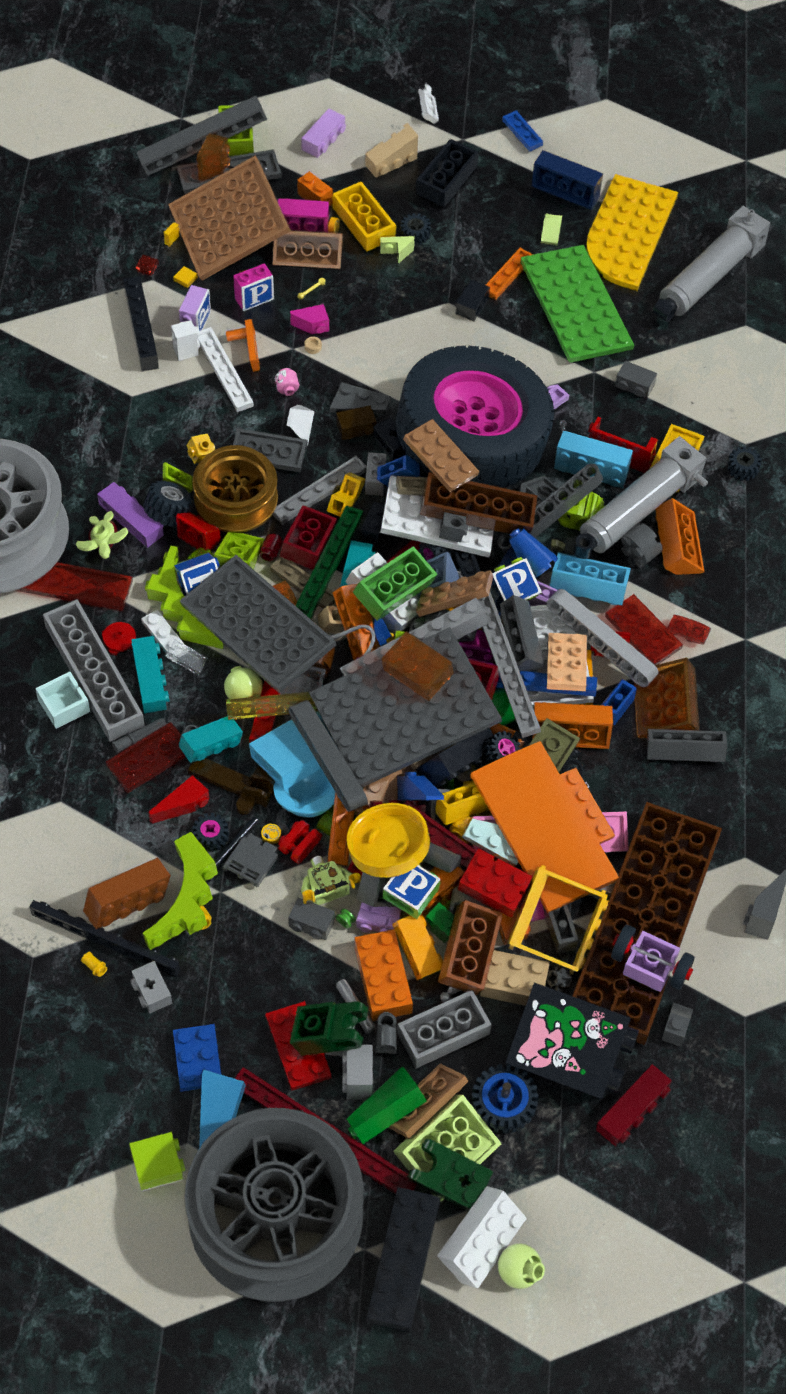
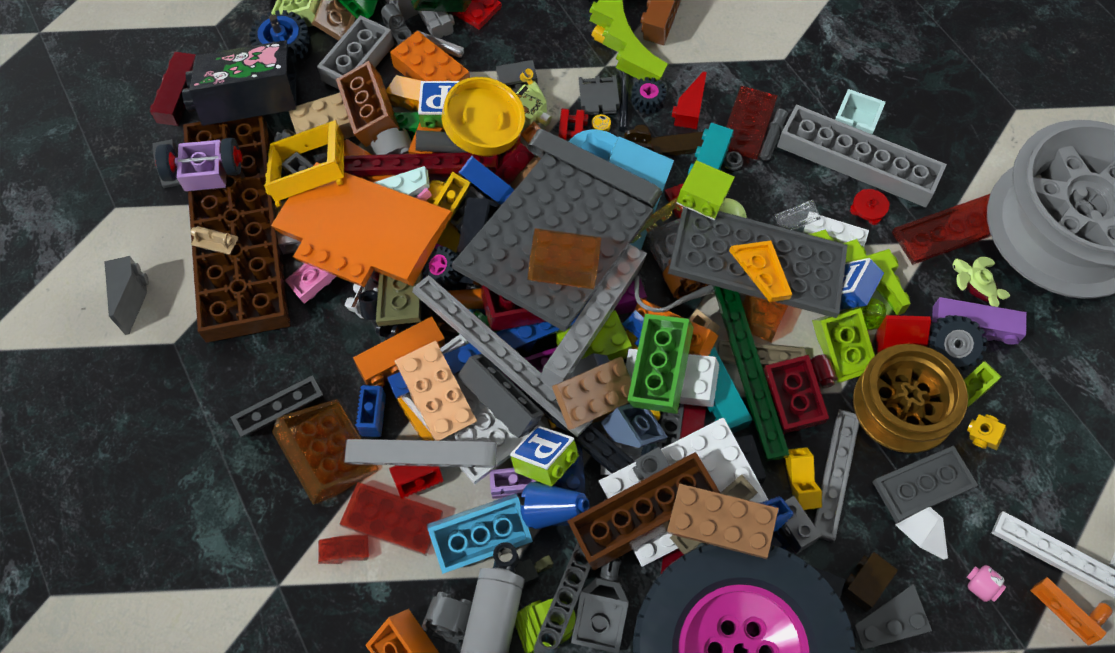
camera: 150 degrees right, 5 degrees up
(149, 674) = (814, 184): teal brick -> none
(258, 681) = (705, 190): none -> lime piece
(266, 603) = (764, 269): none -> light orange wing
(494, 883) = (363, 142): red piece -> none
(672, 893) = (213, 240): none -> tan hinge

